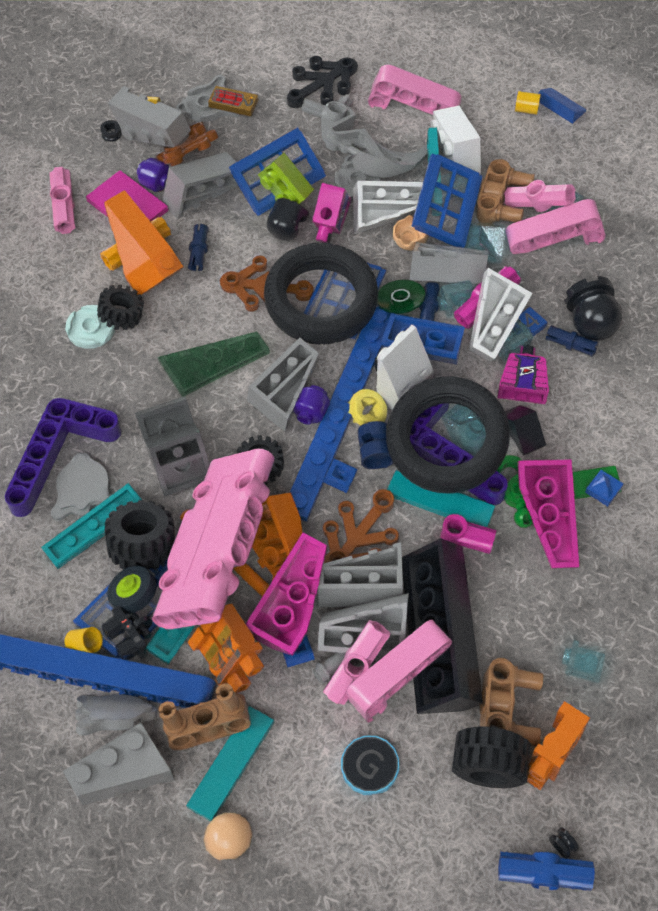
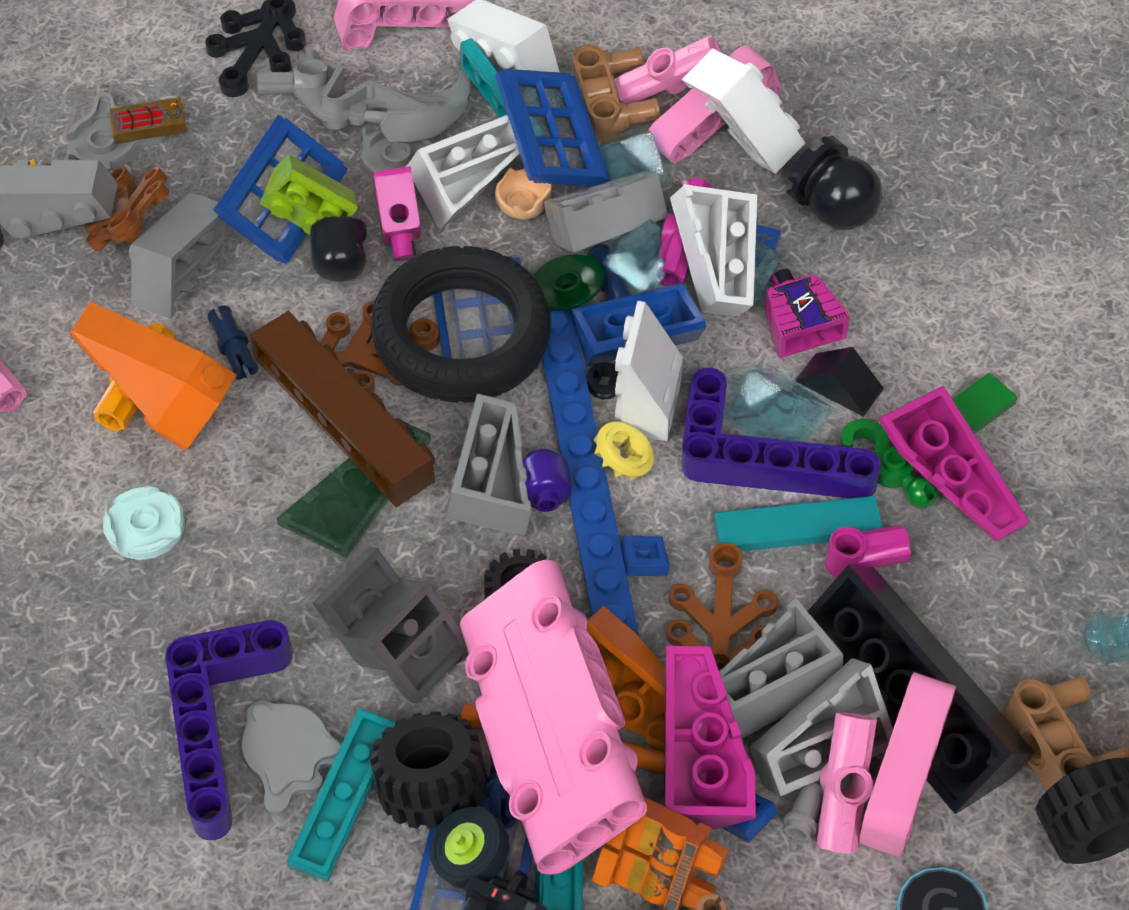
camera: 30 degrees left, 5 degrees down
(116, 316) = (192, 483): black tyre -> none
(148, 203) = (53, 316): dark pink tile -> none
(153, 174) = (100, 269): dark purple head -> none
(226, 313) = (344, 408): none -> reddish brown brick
(373, 445) = (669, 492): dark blue wheel -> none
(435, 304) = (628, 267): none -> clear light blue bracket
(448, 478) = (759, 492): black tyre -> none
(566, 240) = (747, 109): none -> white wedge
(572, 340) = (828, 240): dark blue pin -> none
(604, 488) = (998, 406): blue tile -> none

